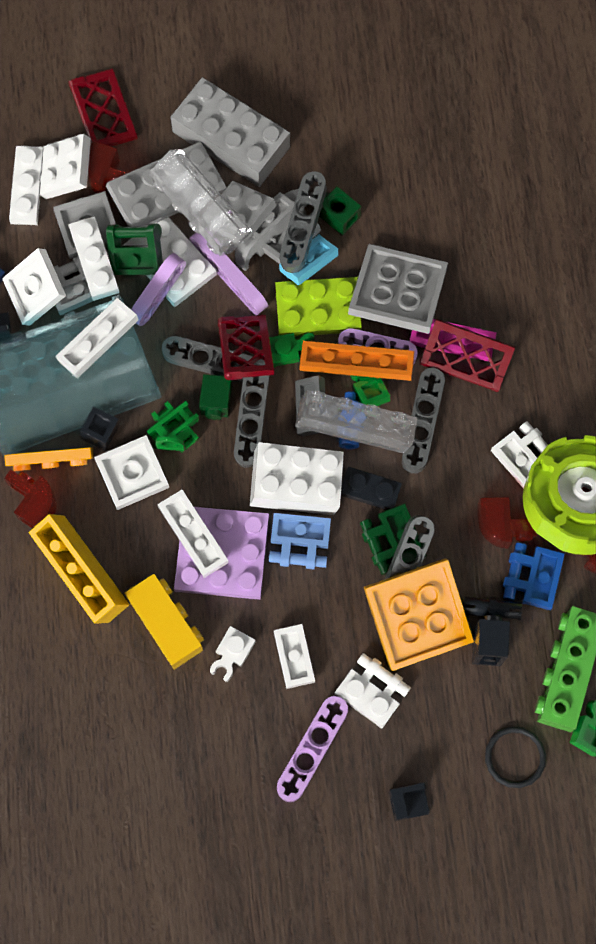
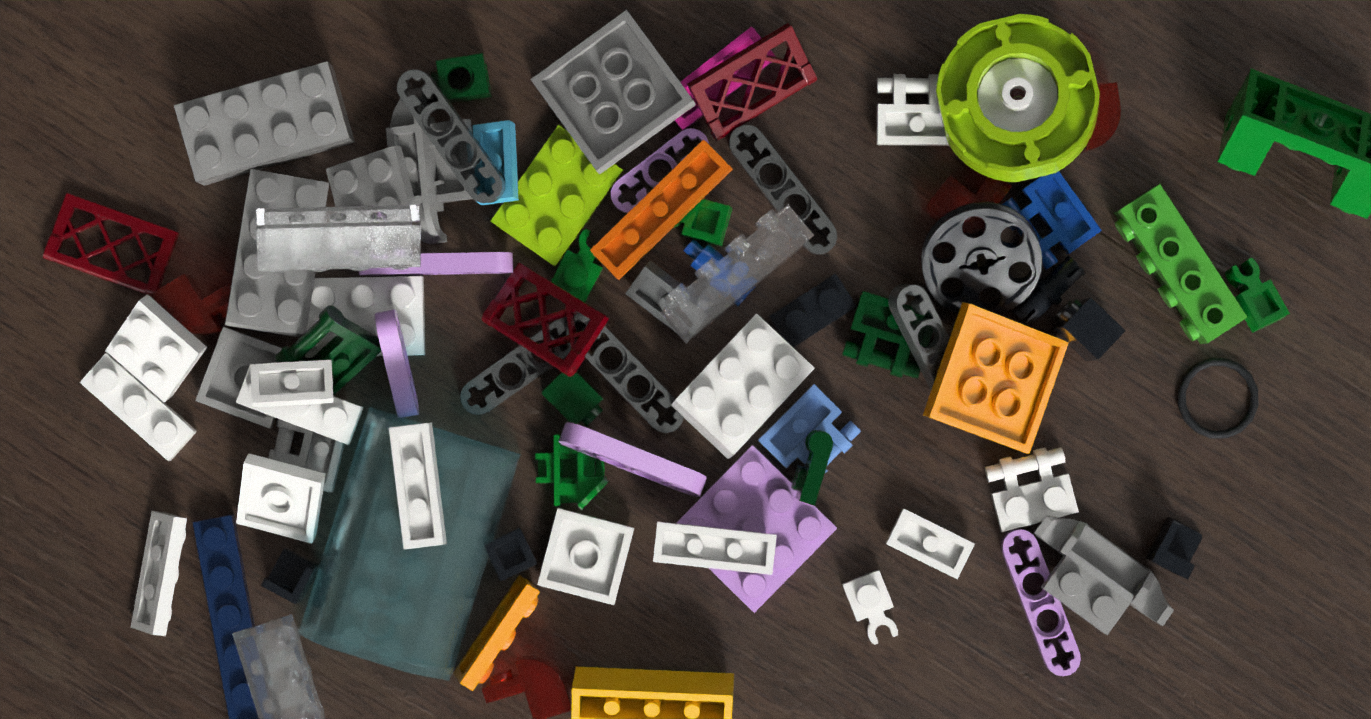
camera: 45 degrees left, 15 degrees up
(101, 239) = (291, 383): none -> white plate
(165, 620) = (782, 649): yellow brick -> none
(206, 452) = (632, 459): none -> lavender beam
(277, 549) = (809, 478): none -> dark green plate
(354, 768) = (1098, 576): none -> light grey plate
(491, 546) = (998, 253): none -> wedge

